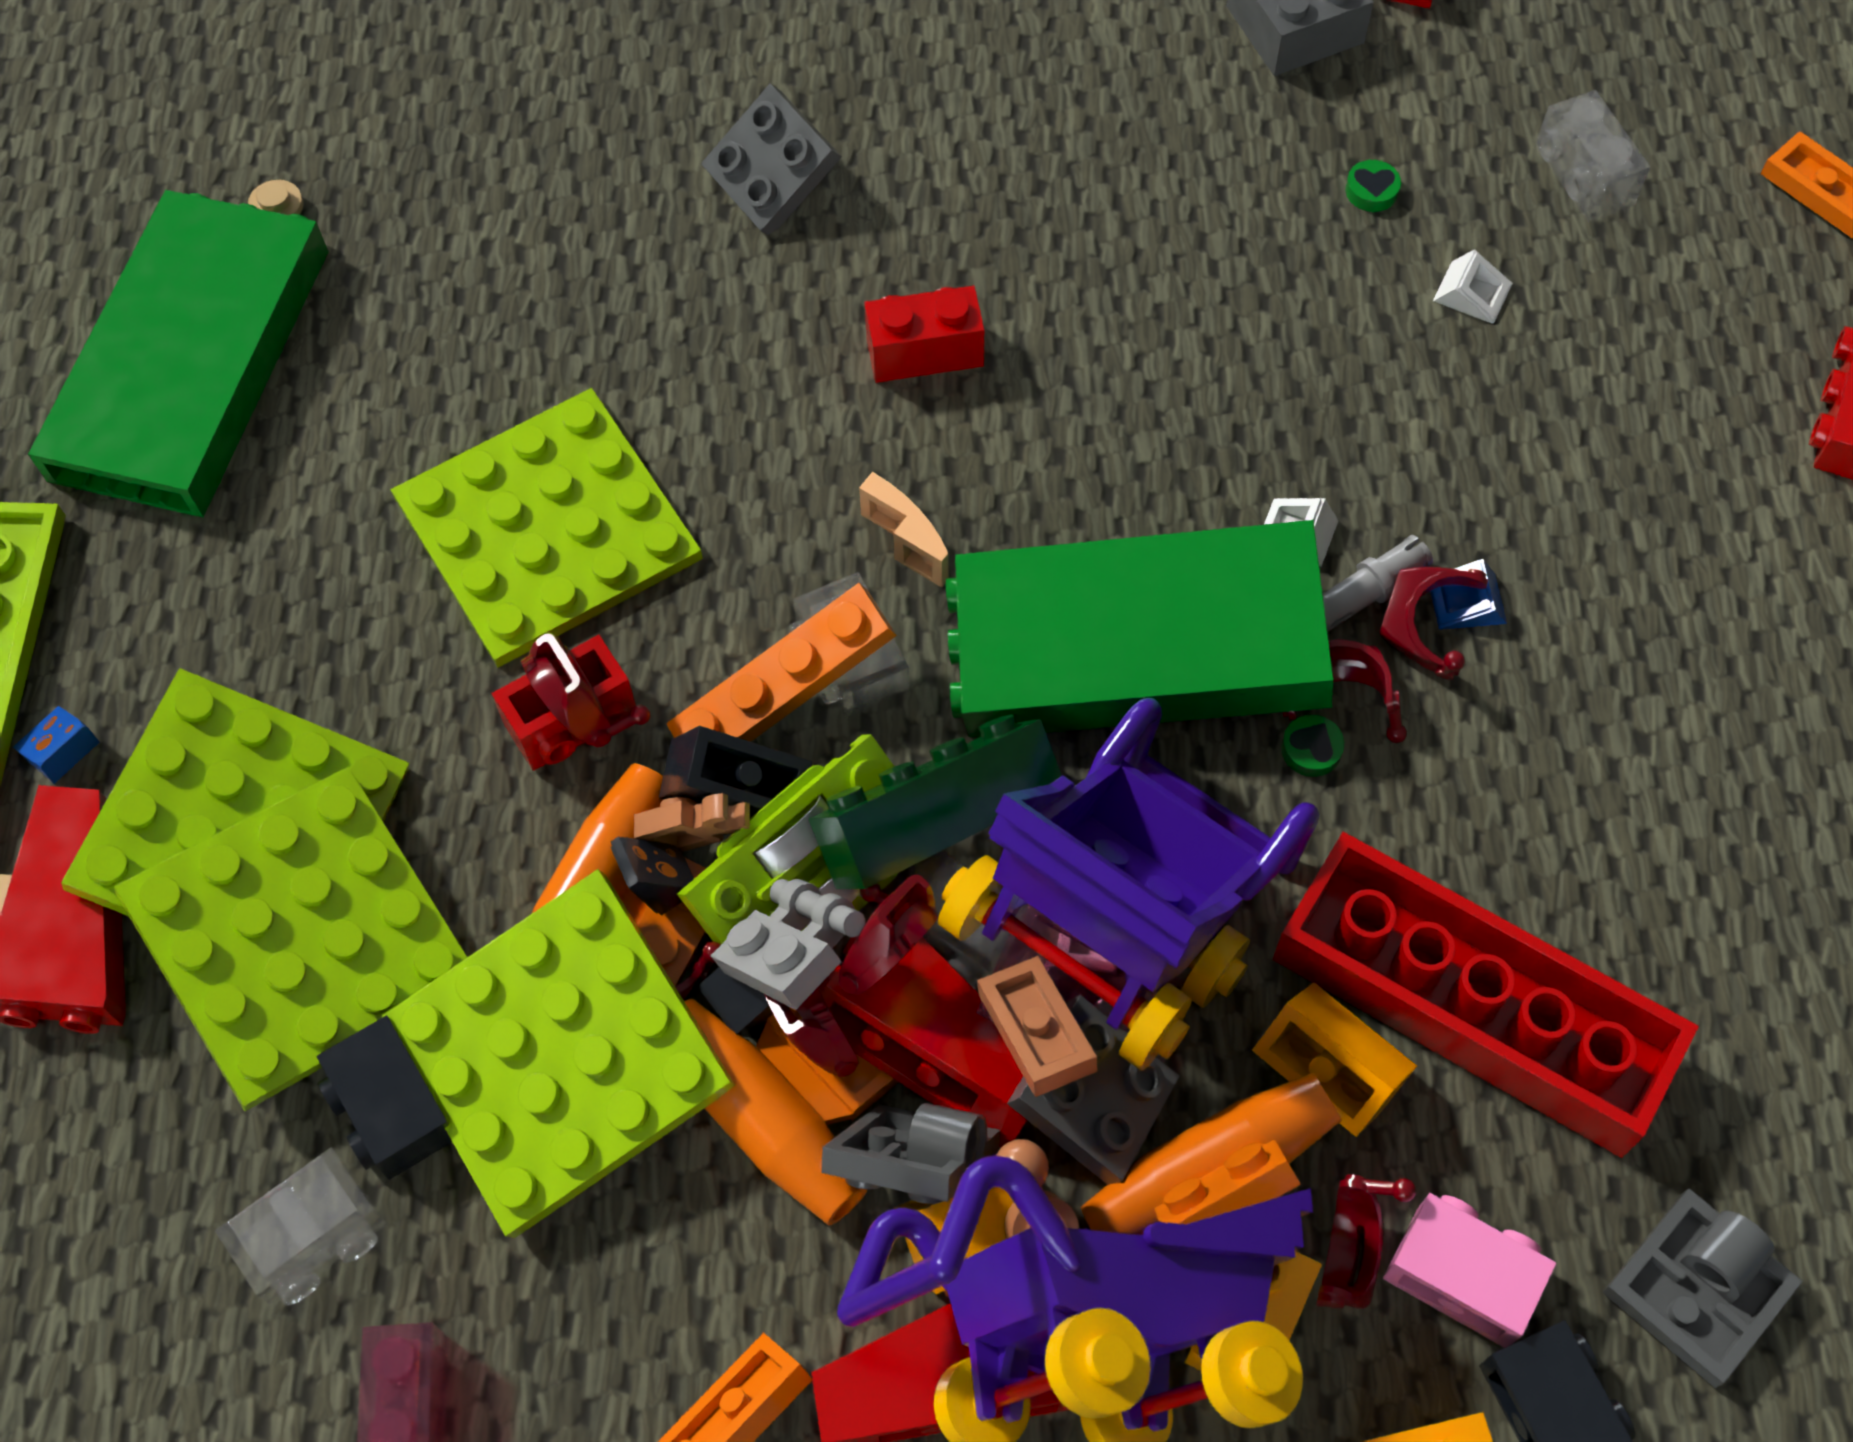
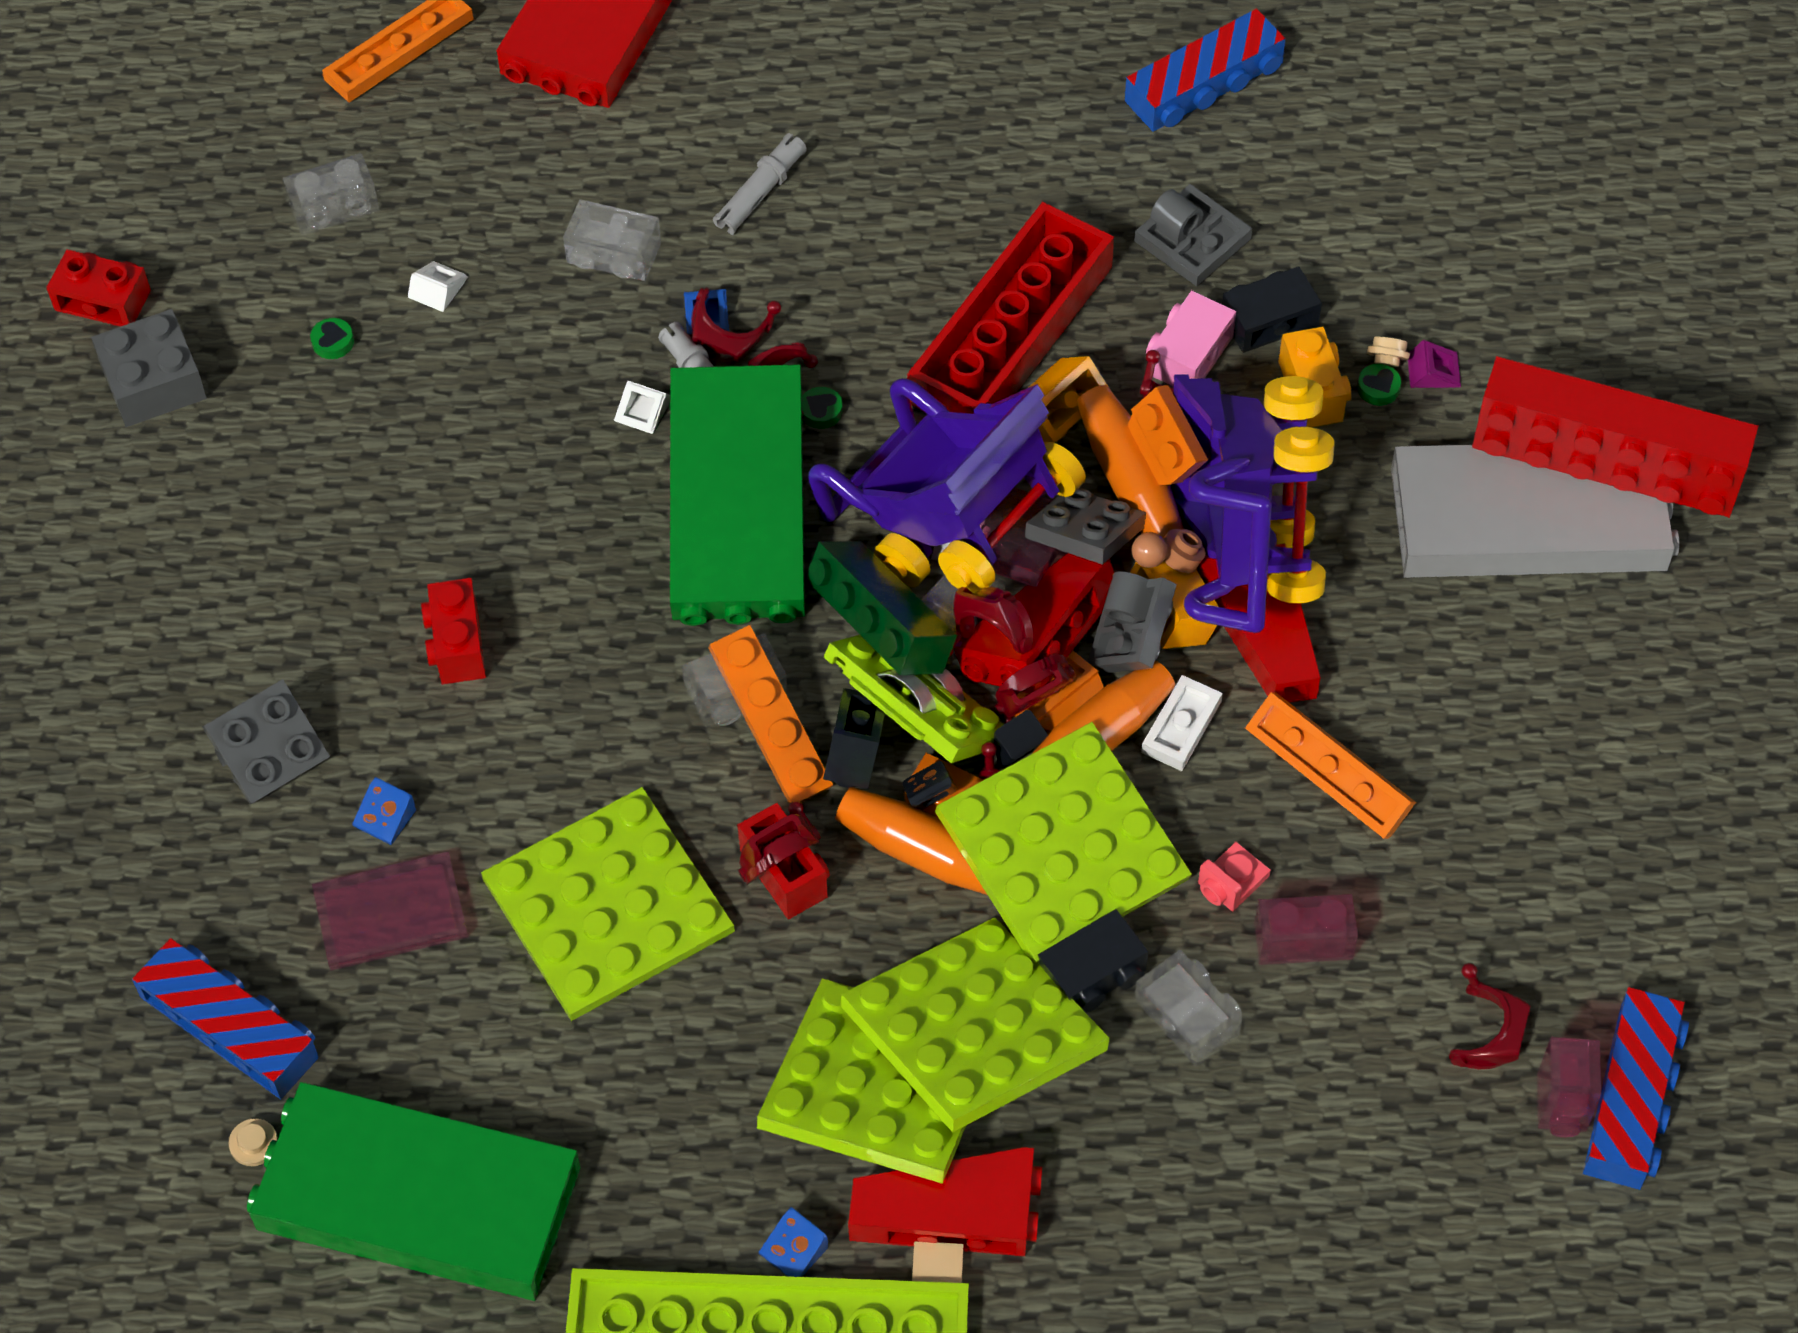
camera: 90 degrees left, 5 degrees down
(420, 160) = (227, 1017): none -> blue brick
(513, 1302) = (1232, 877): none -> coral bracket
(553, 307) = (389, 911): none -> clear pink tile
(685, 290) = (384, 811): none -> blue slope
(691, 824) = (890, 769): nougat plate -> none
(774, 1237) = (1181, 723): none -> white plate
(777, 955) = (1009, 684): light grey plate -> none
(914, 536) = (642, 638): light nougat slope -> none
(1037, 1026) = (1057, 534): nougat plate -> none
(1559, 467) = (612, 240): none -> clear brick
(1707, 657) = (770, 172): none -> light grey pin

